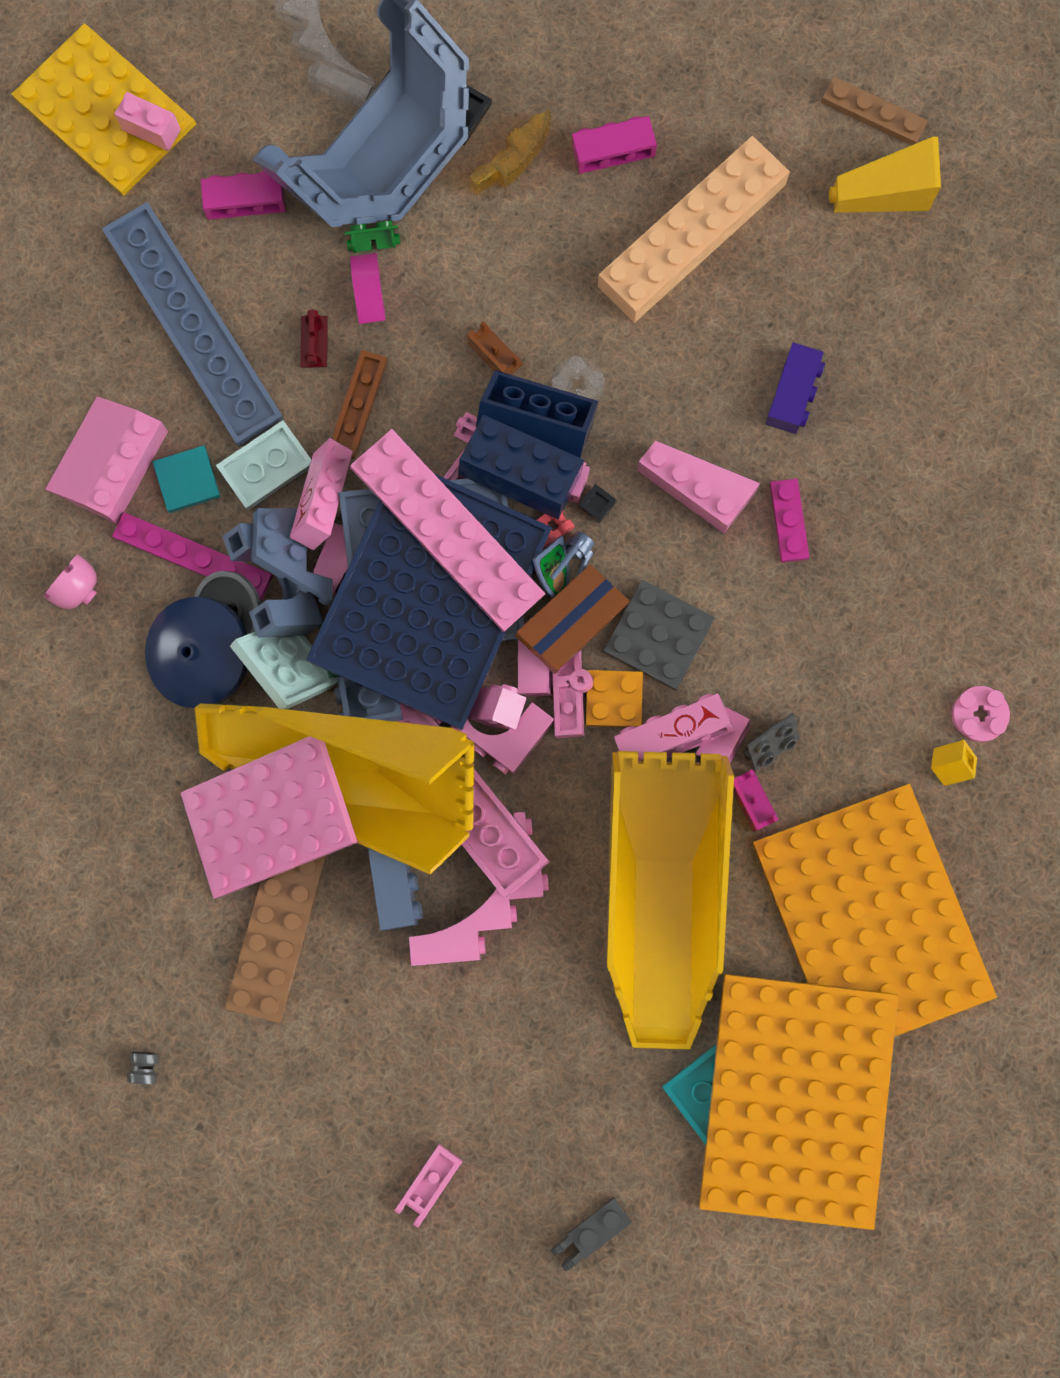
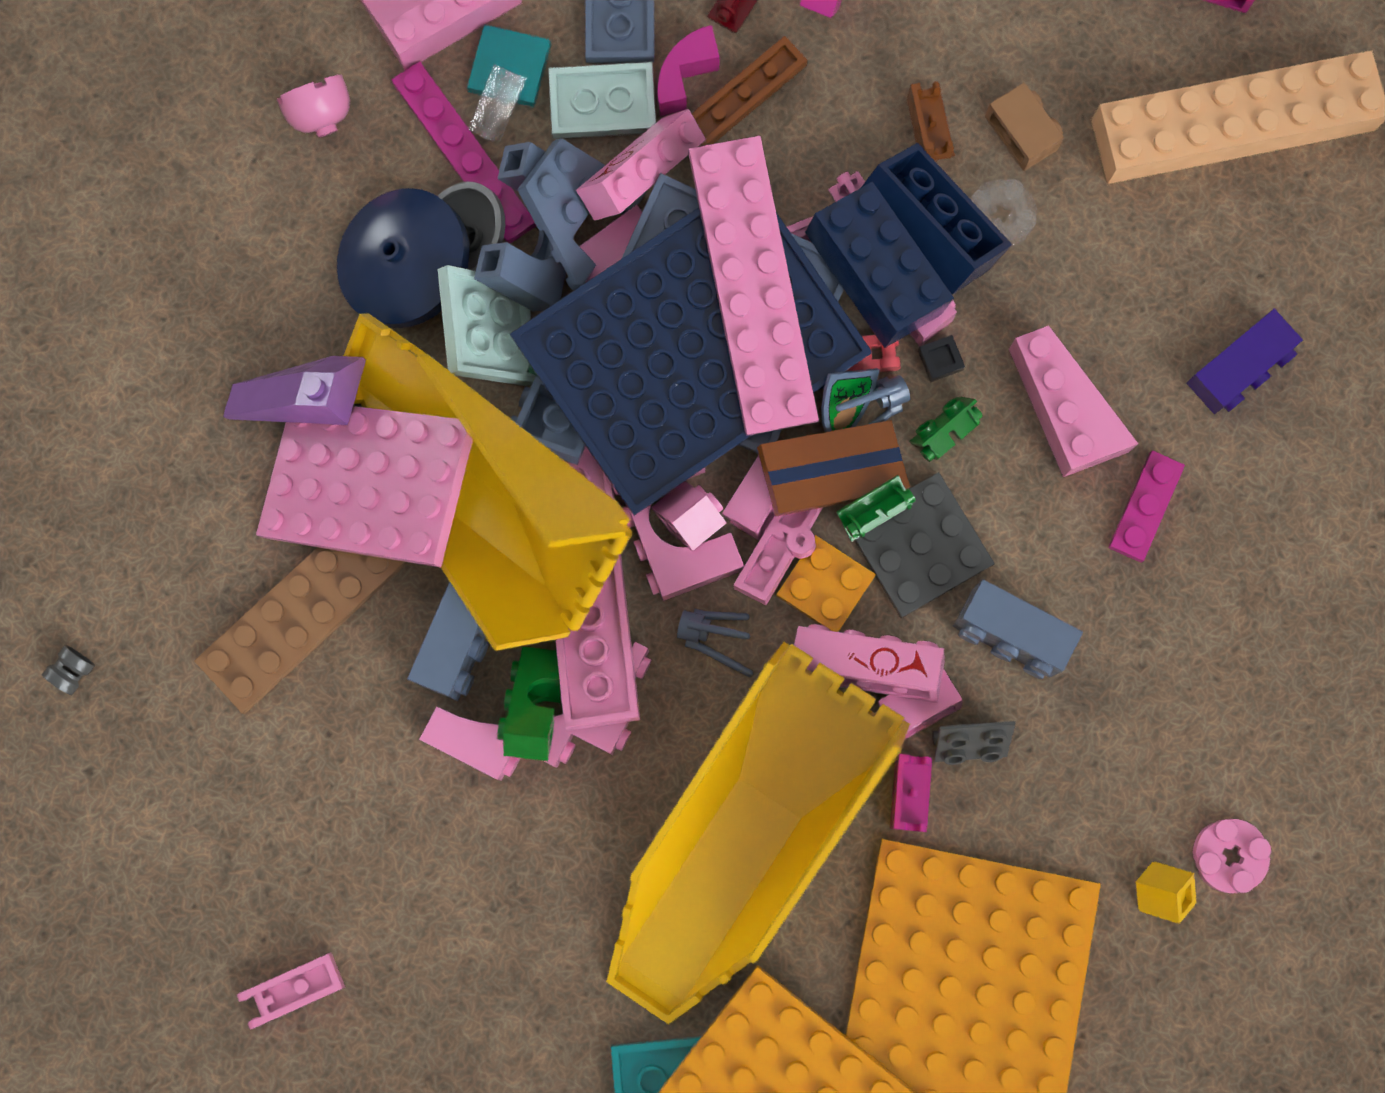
camera: 30 degrees right, 0 degrees up
(191, 781) = (301, 394): none -> medium lavender wedge
(195, 510) = (496, 103): none -> clear hinge
(306, 402) = (689, 57): none -> dark pink brick
(479, 911) = (530, 728): none -> green arch
(546, 777) = (696, 627): none -> sand blue plant
(557, 317) = (1024, 126): none -> medium nougat brick
(616, 628) = (875, 508): none -> green hinge
(631, 535) = (957, 417): none -> green hinge
(756, 652) = (1016, 630): none -> sand blue brick

